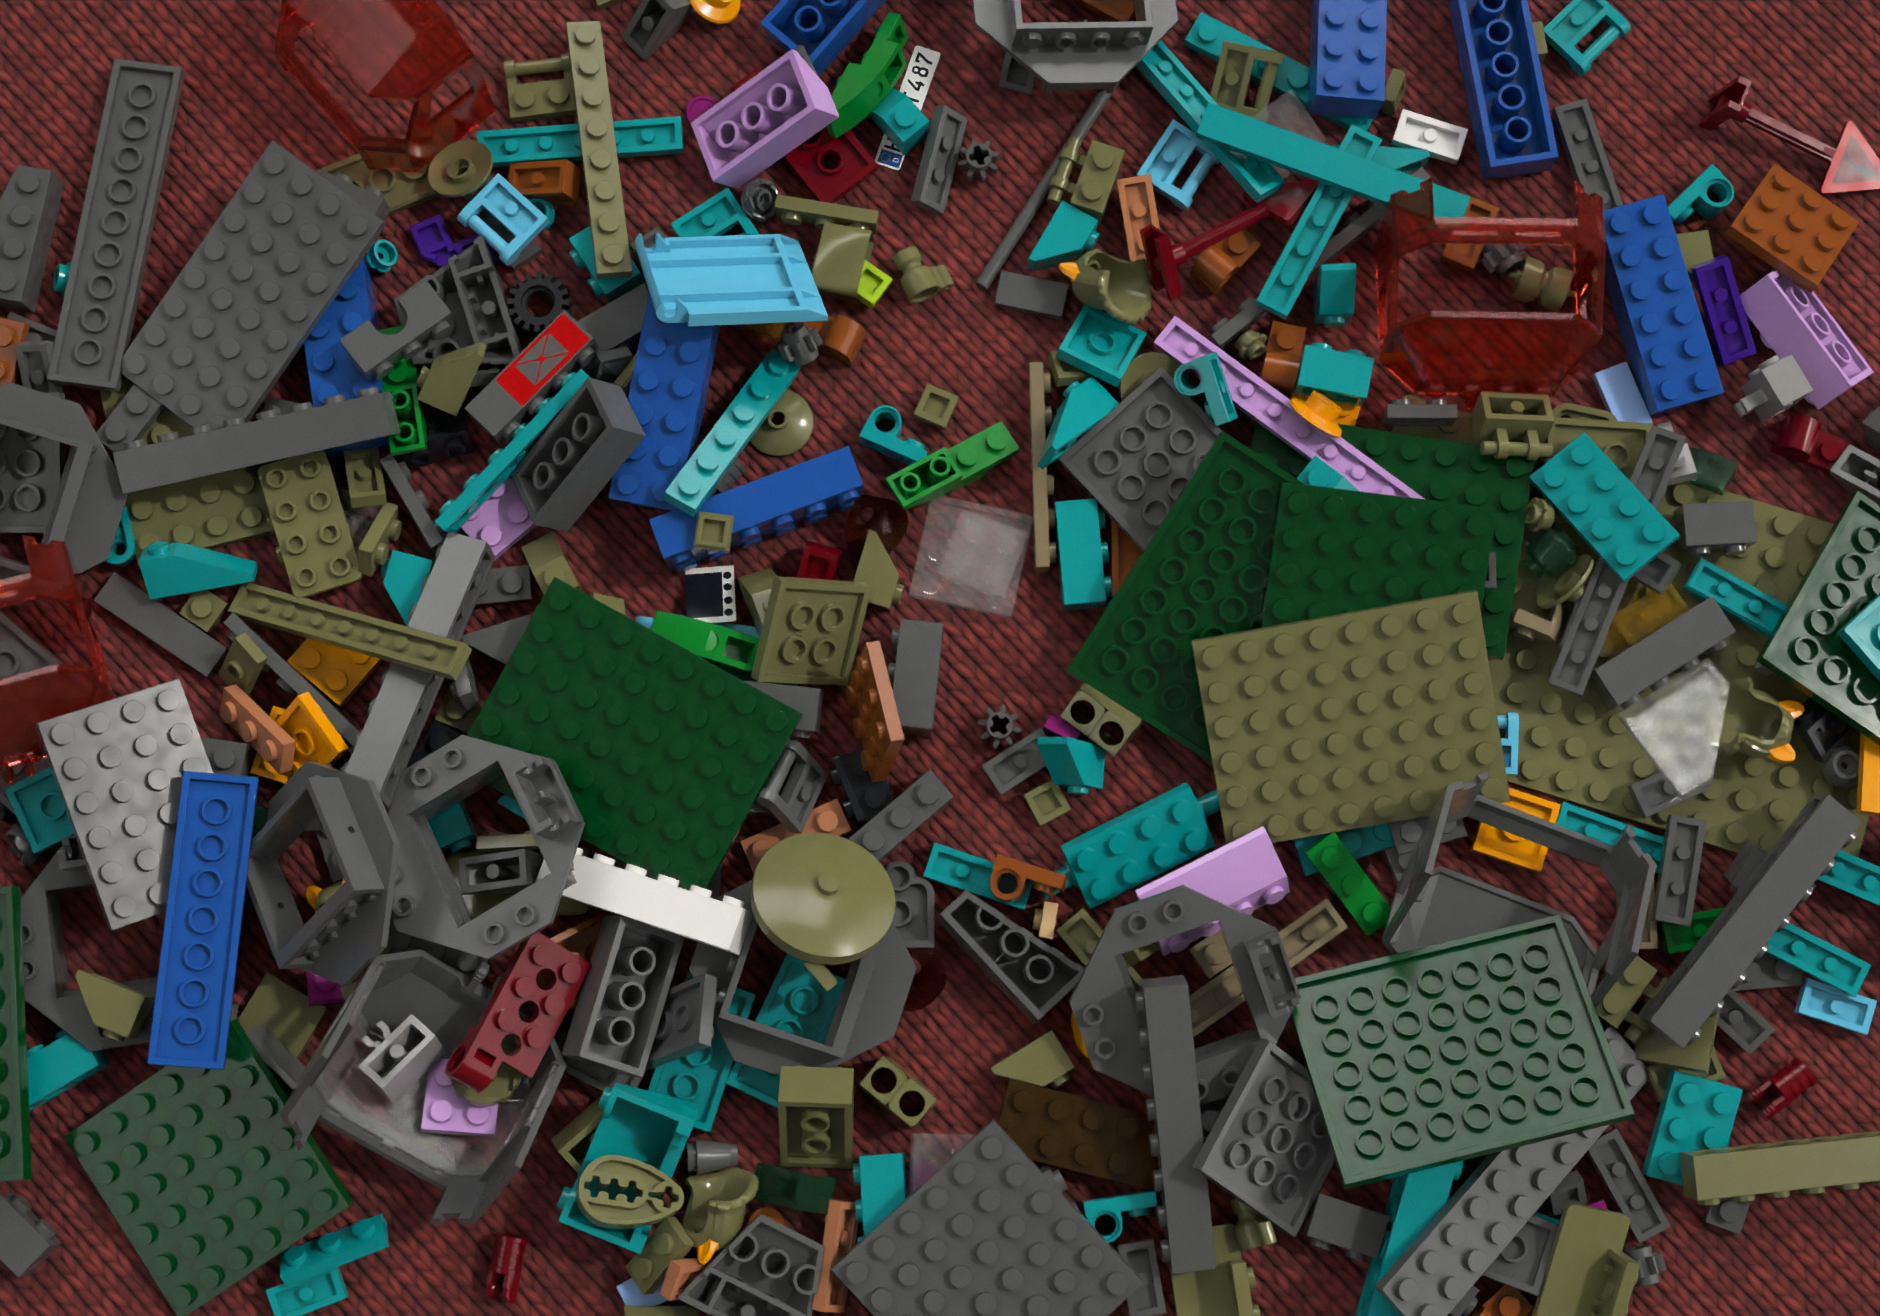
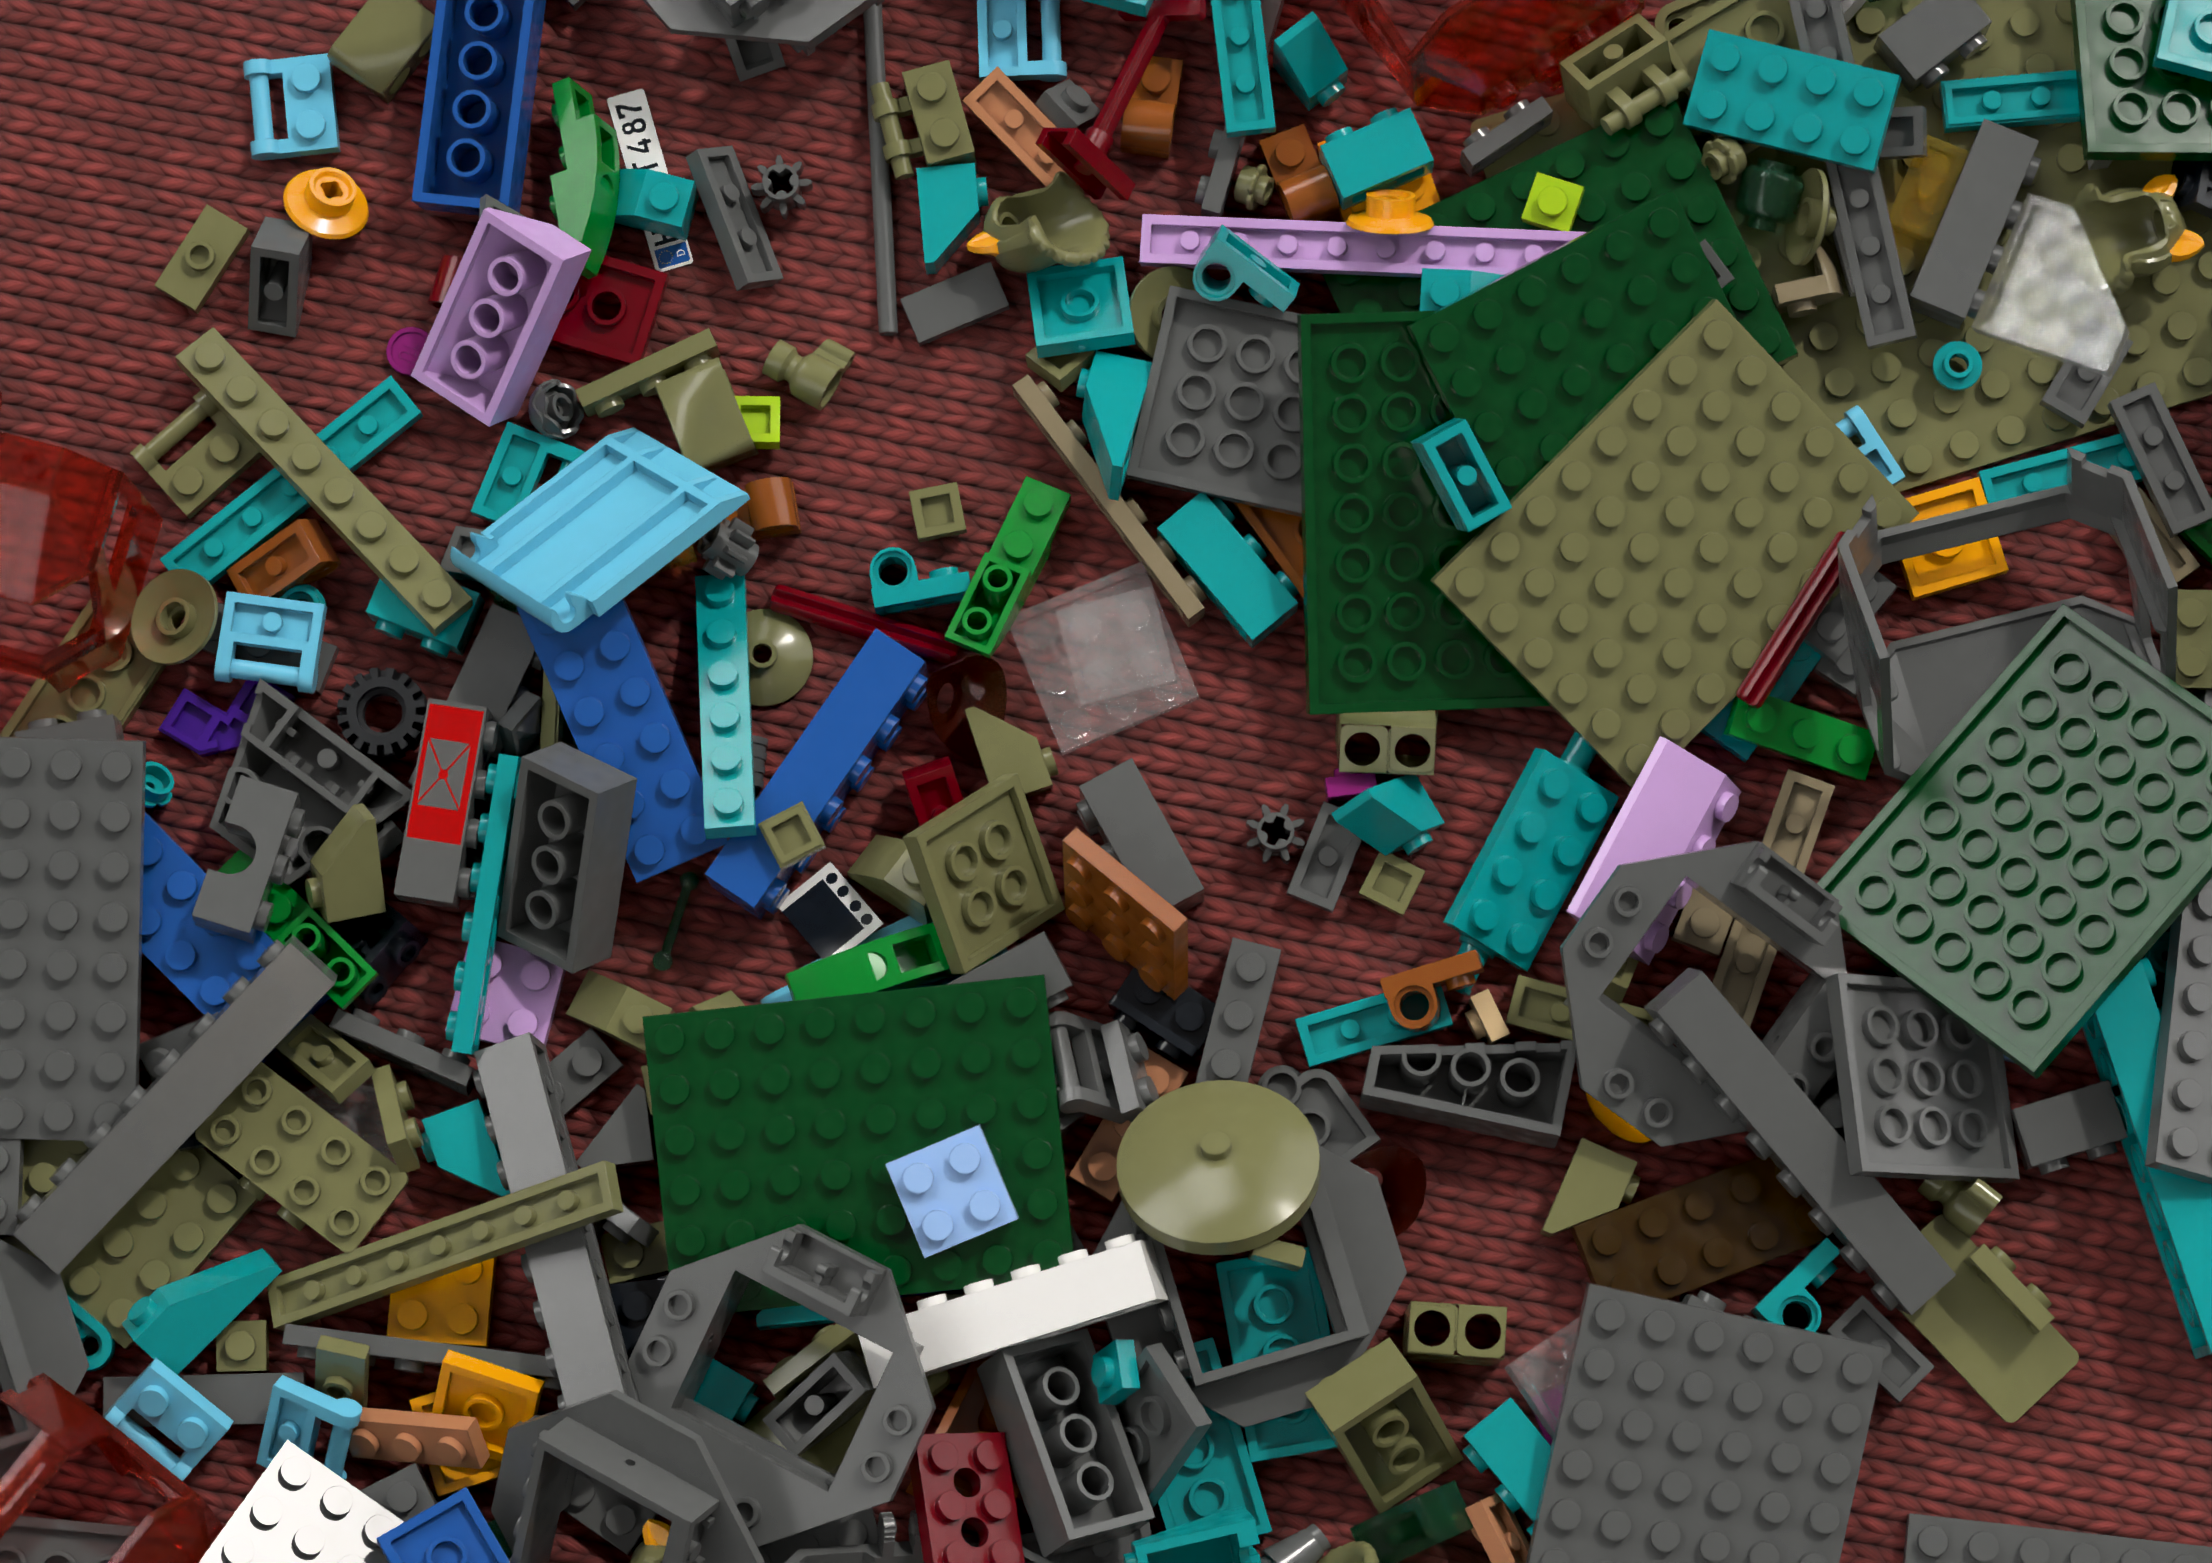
camera: 30 degrees left, 0 degrees up
(136, 619) = (175, 1411): none -> medium azure plate
(197, 673) = (296, 1416): none -> medium azure plate
(598, 555) = (663, 960): none -> clear green hinge
(659, 802) = (952, 1191): none -> light blue plate
(679, 975) = (1115, 1372): none -> teal plate
(815, 803) = (1126, 1059): none -> dark grey plate
(845, 437) = (861, 623): none -> dark red axle
(1176, 224) = (1068, 106): none -> dark grey plate
(1252, 590) = (1461, 474): none -> teal brick
(1386, 817) = (1792, 629): none -> dark red axle
(1419, 471) = (1552, 203): none -> lime plate
(1583, 733) = (1951, 379): none -> teal plate

